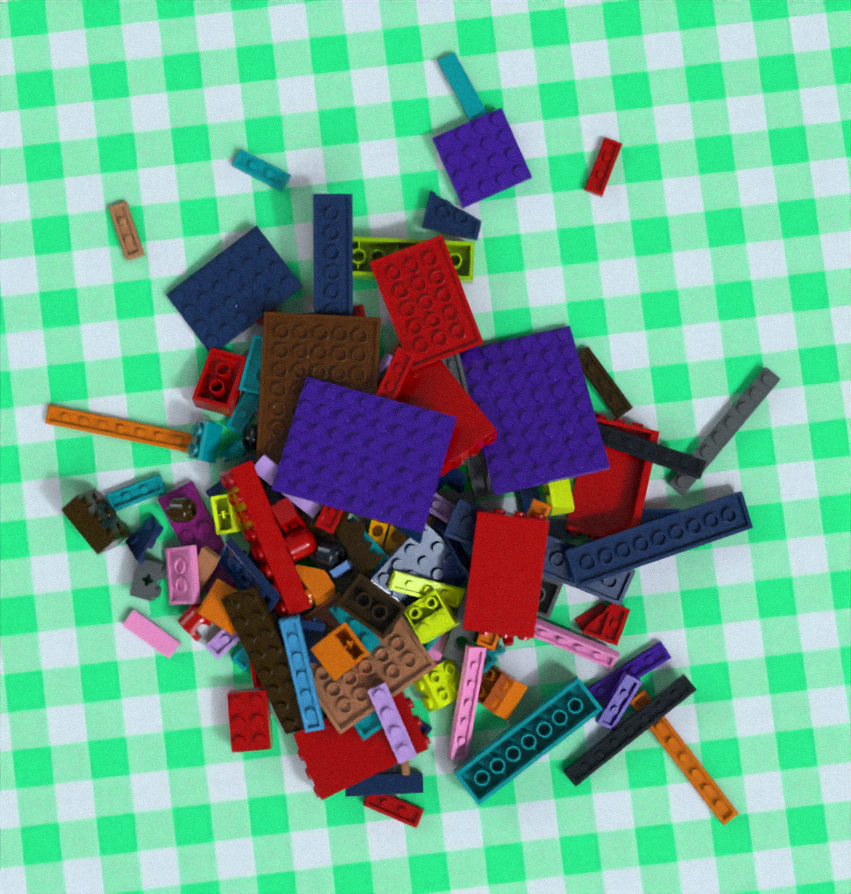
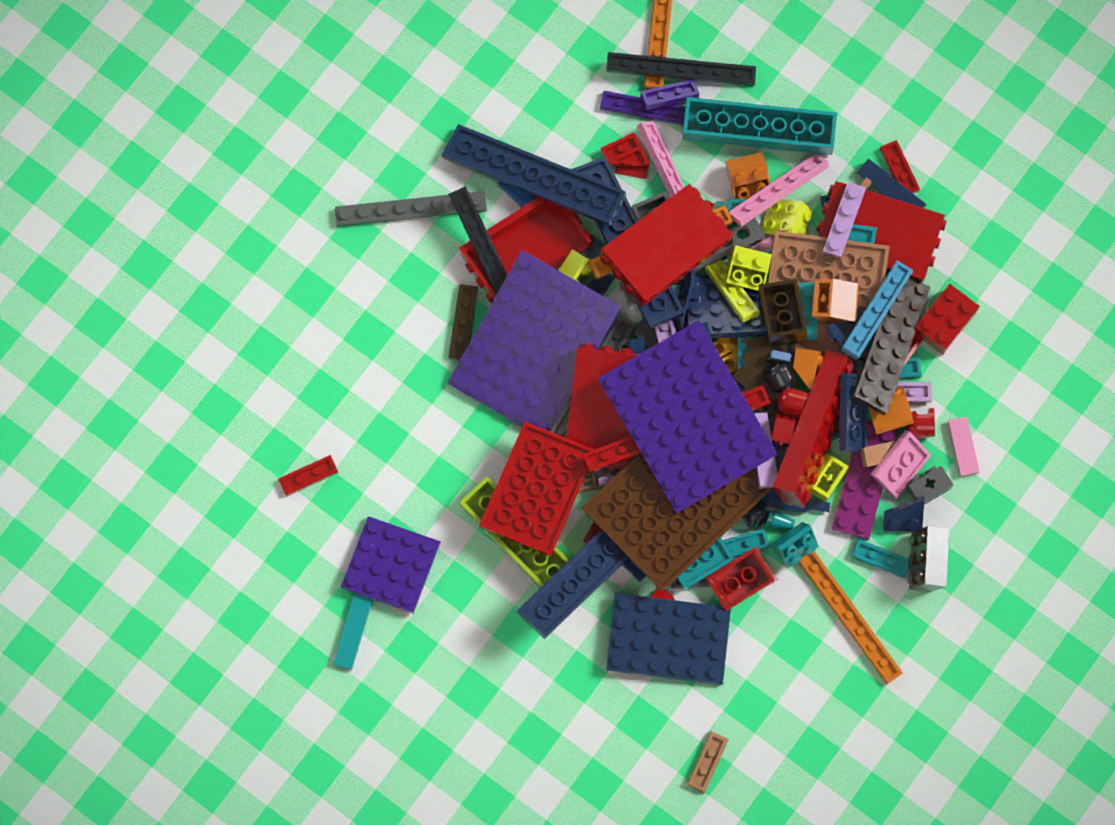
camera: 130 degrees left, 10 degrees down
(181, 510) = (858, 509): dark brown head -> none
(261, 170) = (562, 712): teal tile -> none
(450, 220) = (458, 541): dark blue wing -> none

